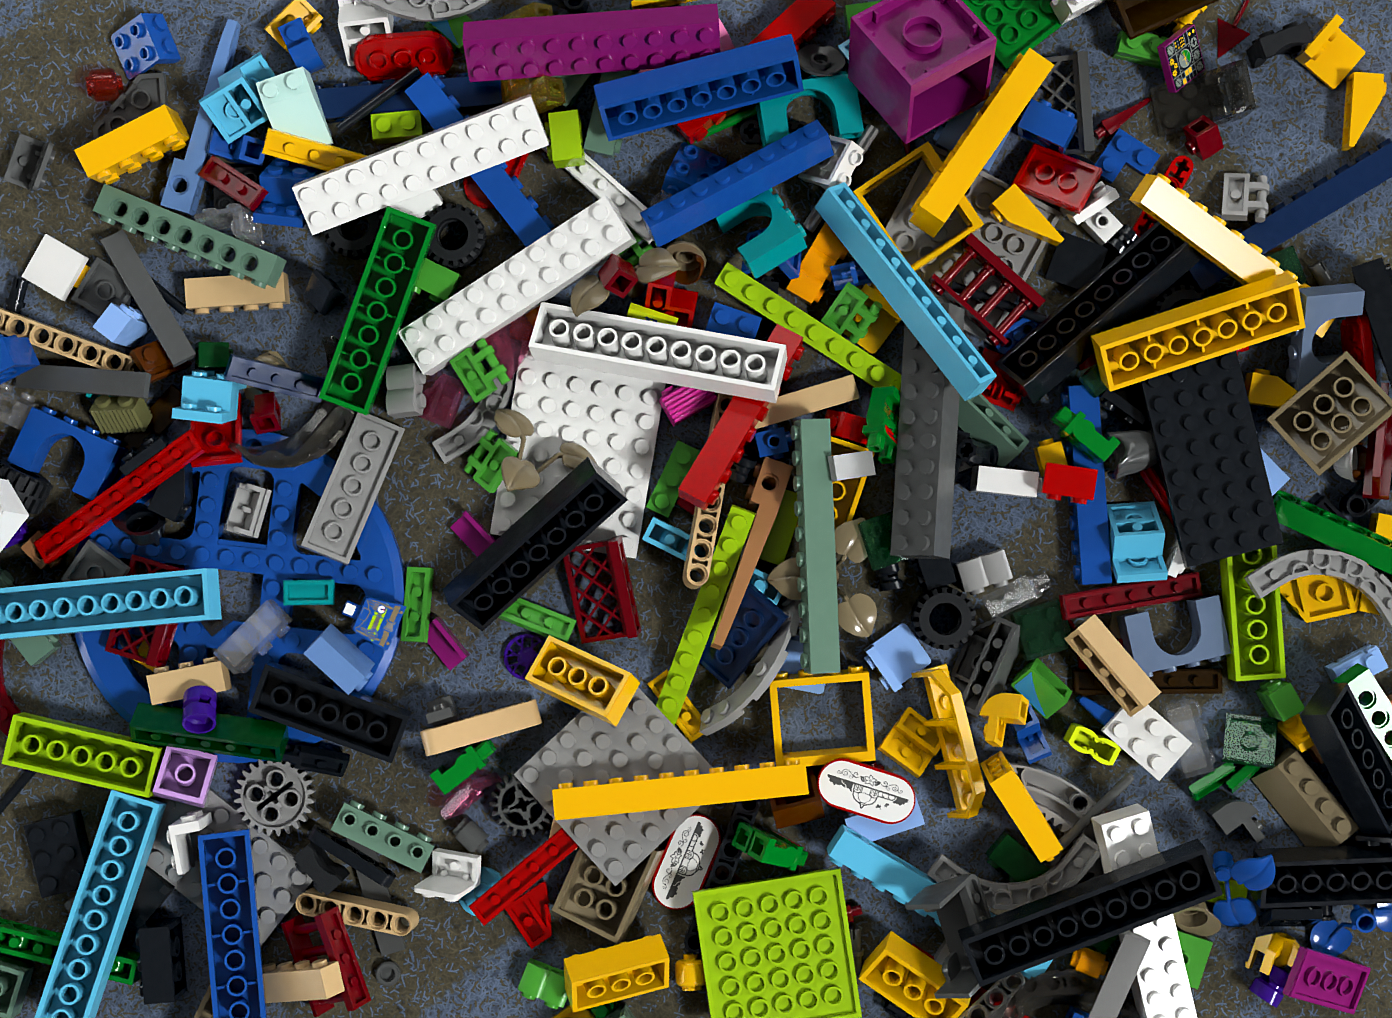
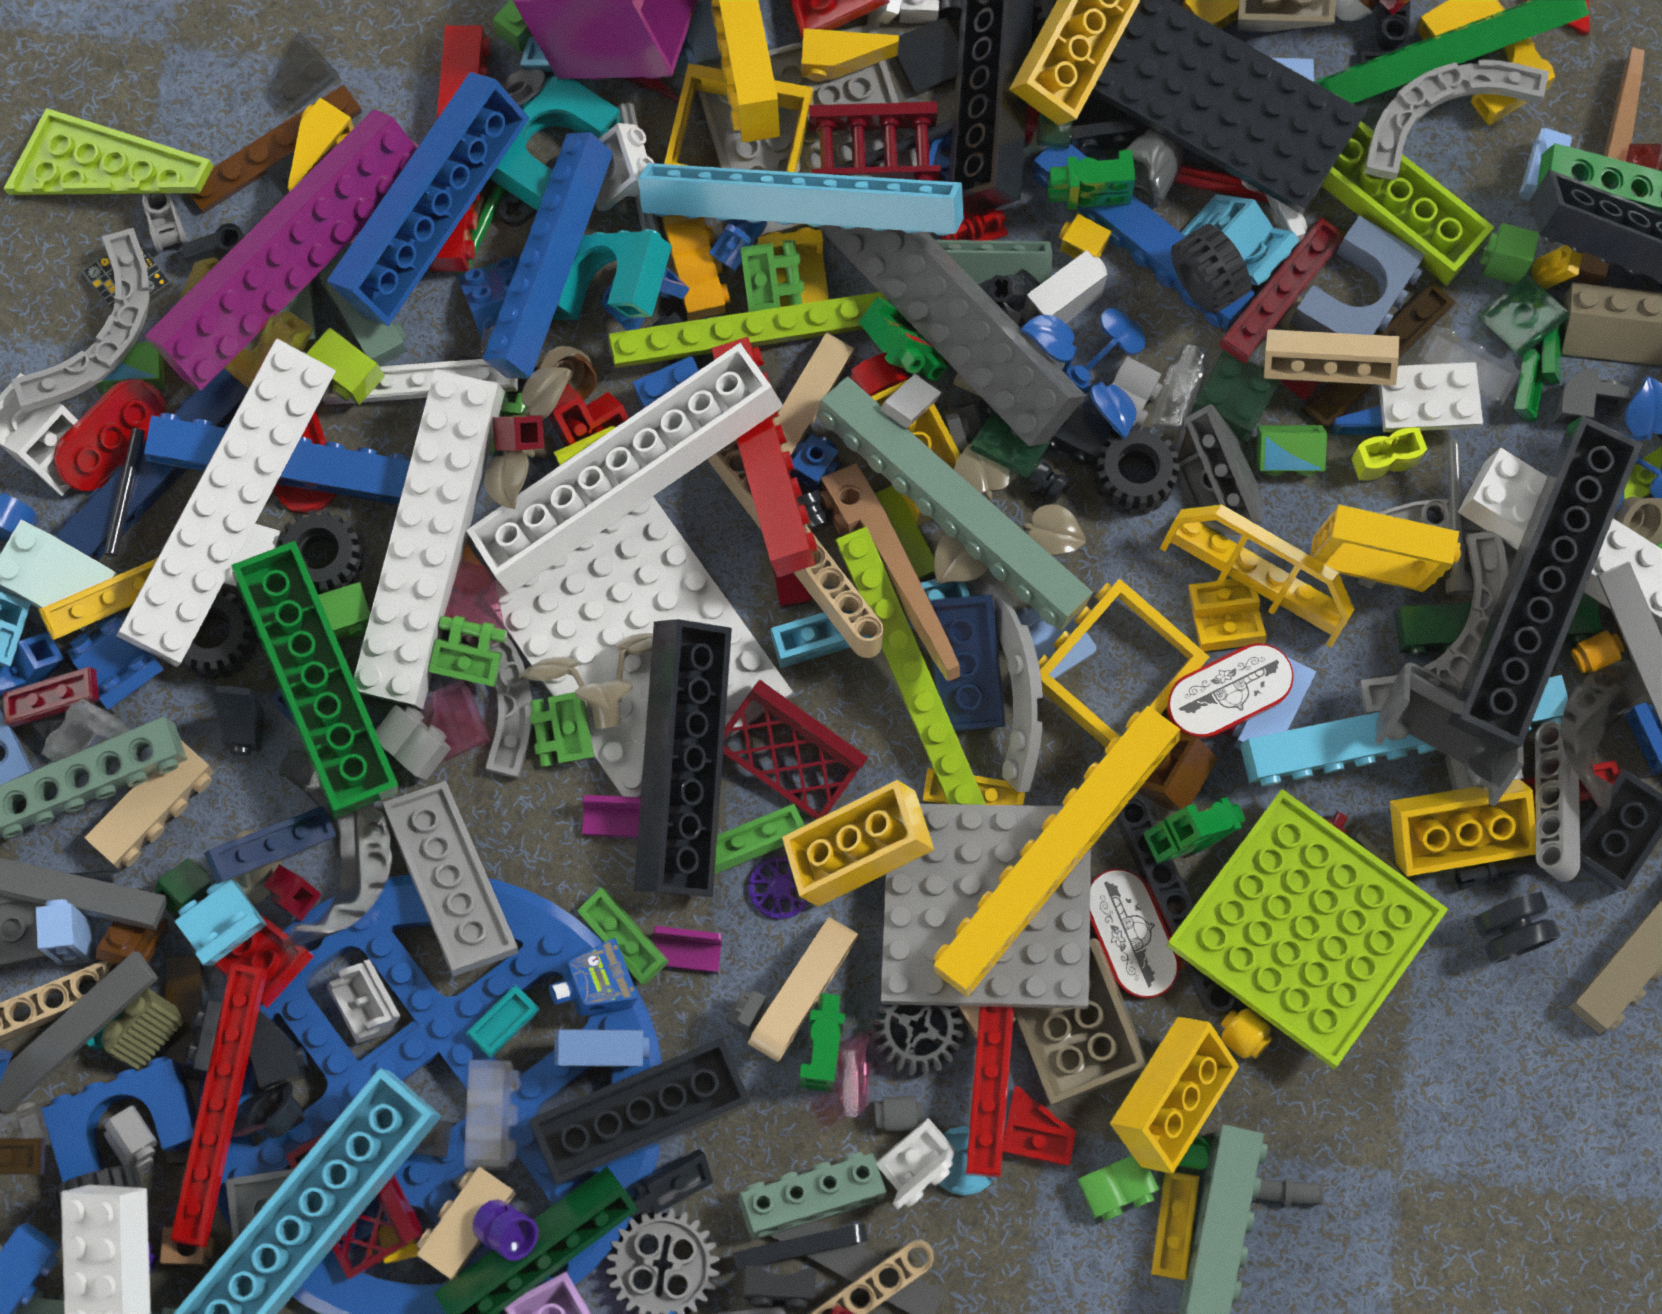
camera: 50 degrees left, 15 degrees down
(62, 469) = (131, 1139): none -> light grey brick
(397, 126) = (163, 505): lime brick -> none
(675, 471) = (753, 586): bright green plate -> none
(684, 402) = (694, 499): dark pink brick -> none
(875, 498) = (962, 424): none -> dark grey bracket
(896, 656) = (1130, 548): light blue bracket -> none
(965, 507) = (1056, 341): none -> blue plant
(1000, 710) = (1277, 493): yellow brick -> none
(1031, 738) = (1314, 498): blue brick -> none
(1069, 482) = (1124, 231): red brick -> none
(1096, 551) = (1210, 268): none -> black tyre
(1320, 597) = (1448, 135): yellow wing -> none

